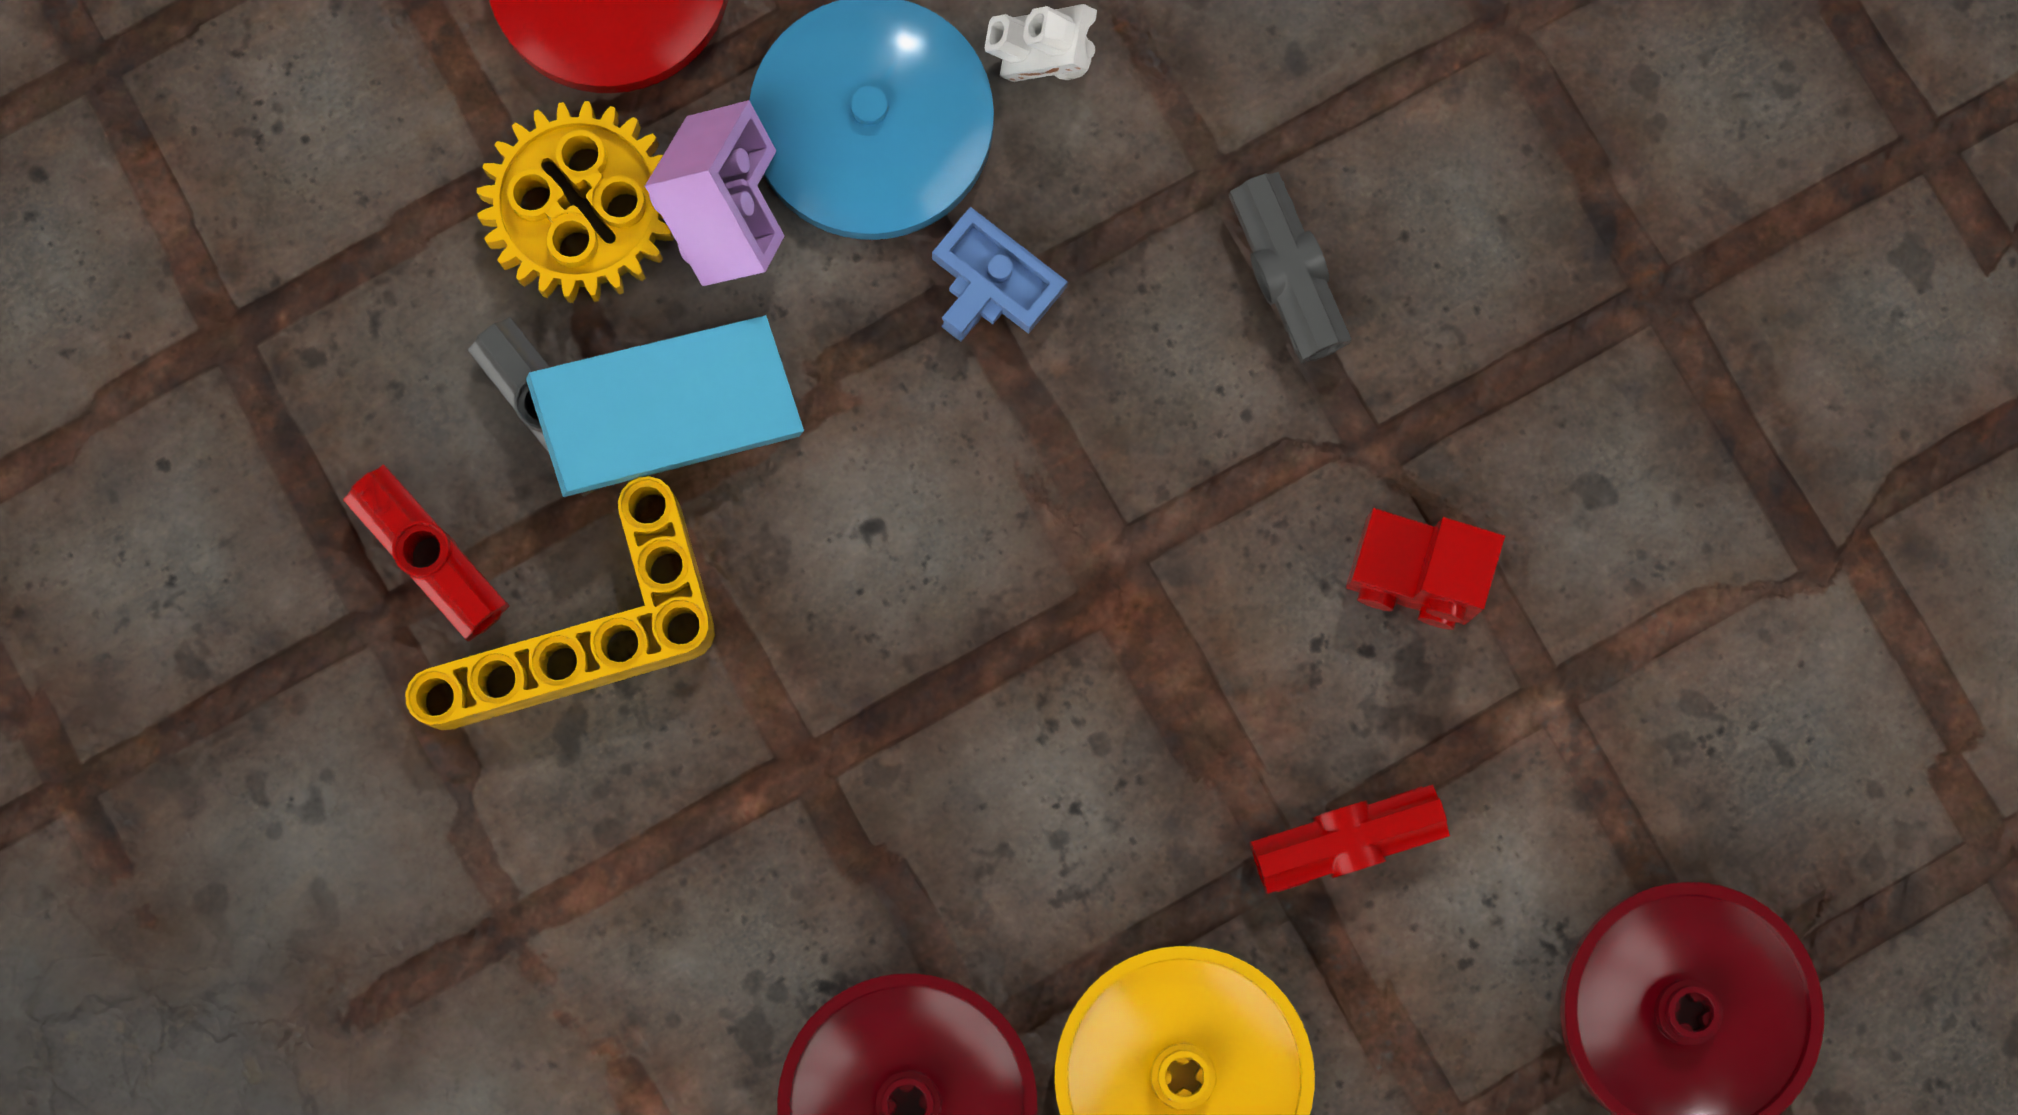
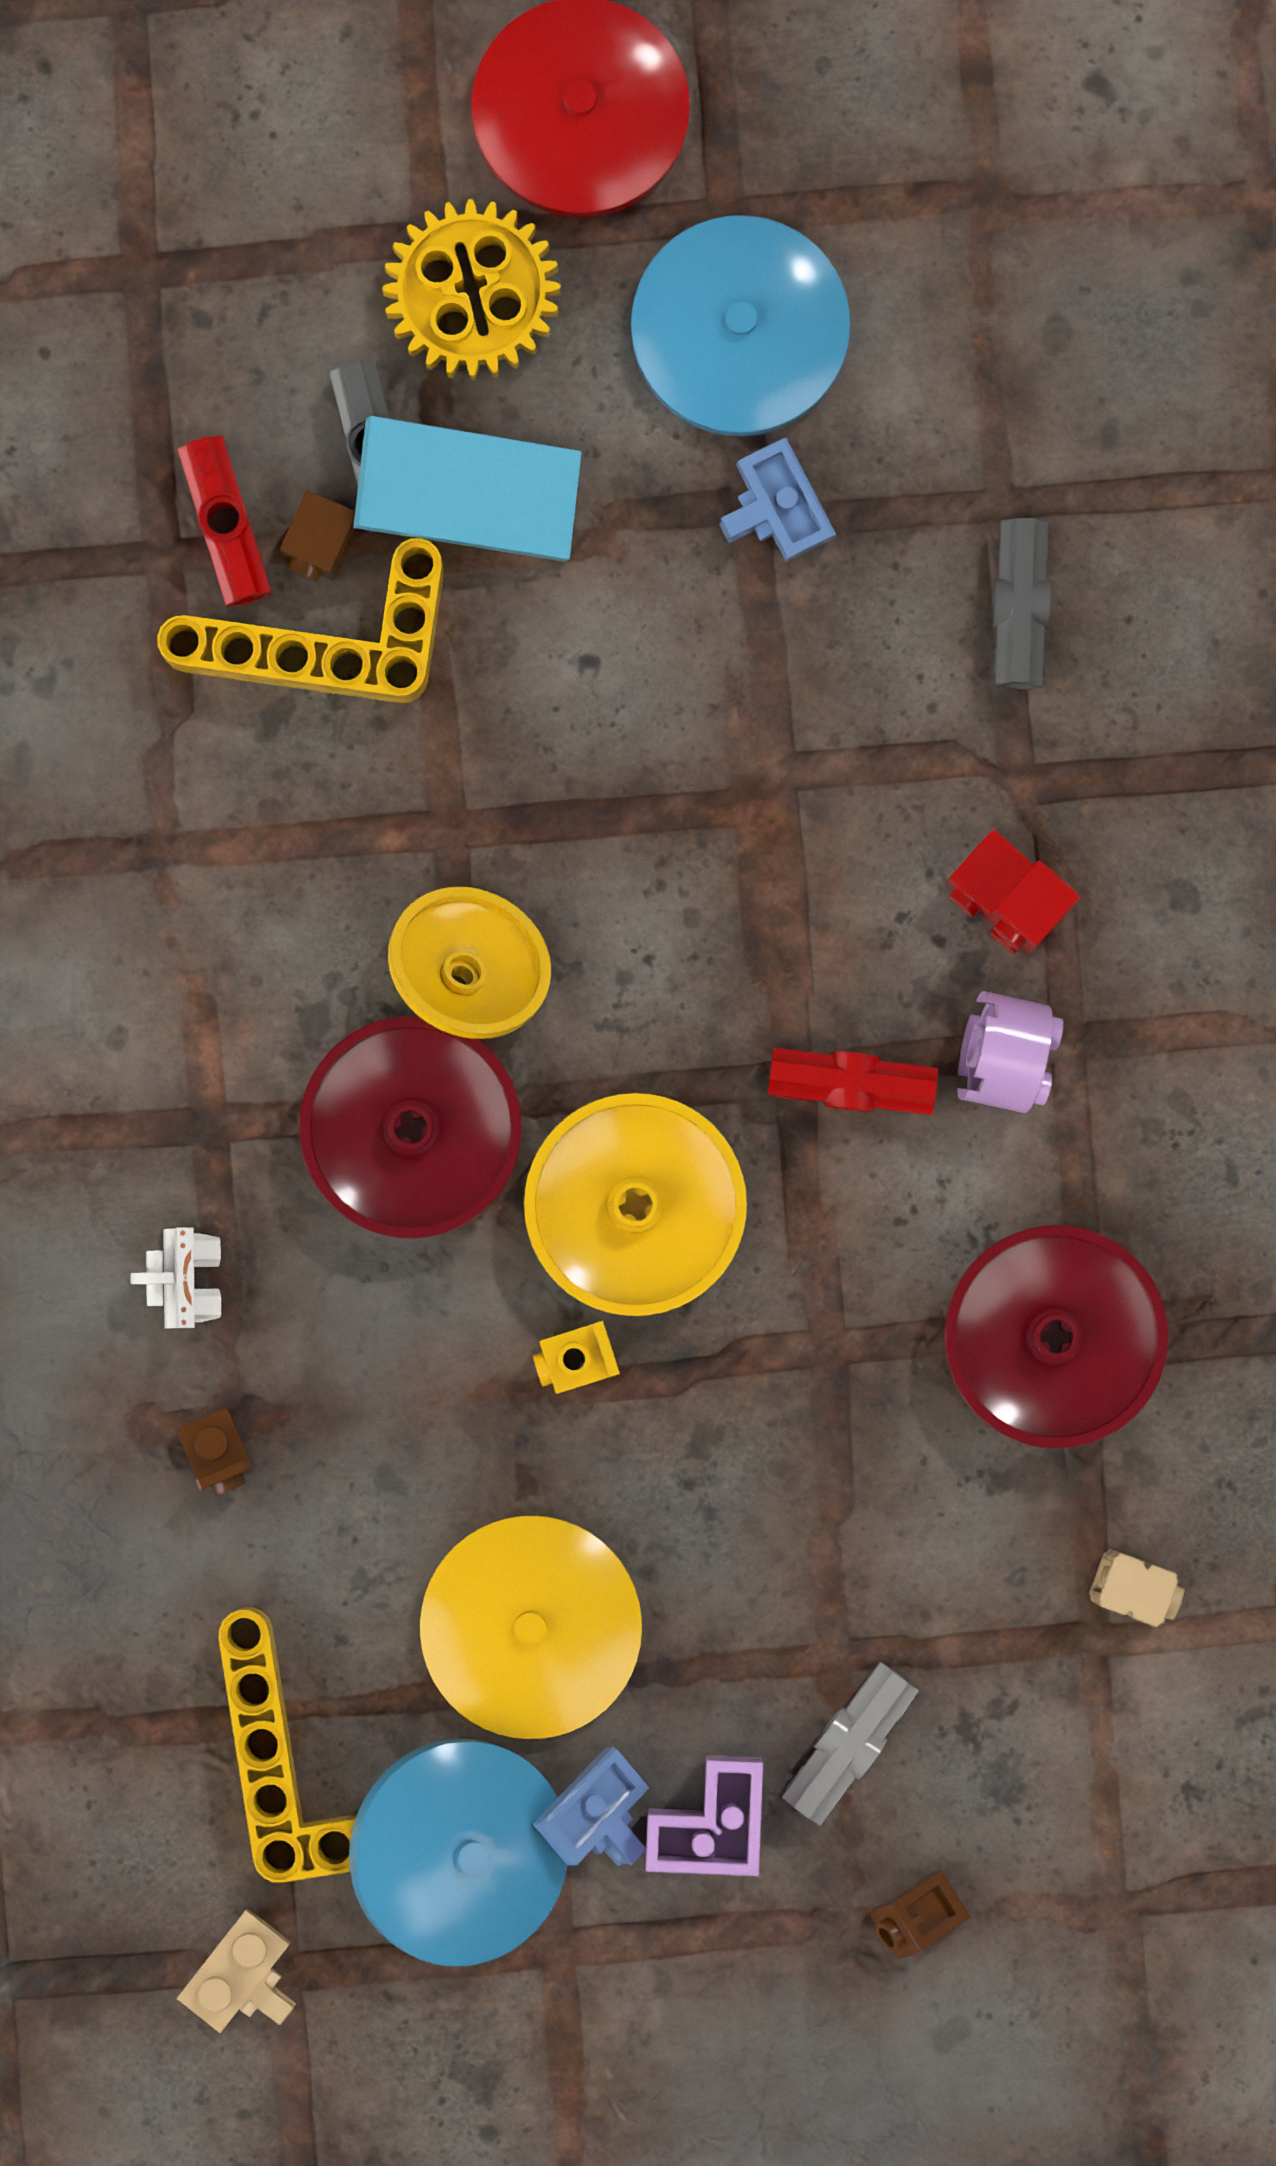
camera: 25 degrees right, 5 degrees up
(531, 525) = (318, 537): none -> reddish brown brick
(712, 194) = (580, 336): lavender brick -> none
(896, 871) = (484, 943): none -> yellow dish
(1043, 43) = (905, 329): white hips -> none
(1500, 735) = (1008, 1053): none -> lavender brick

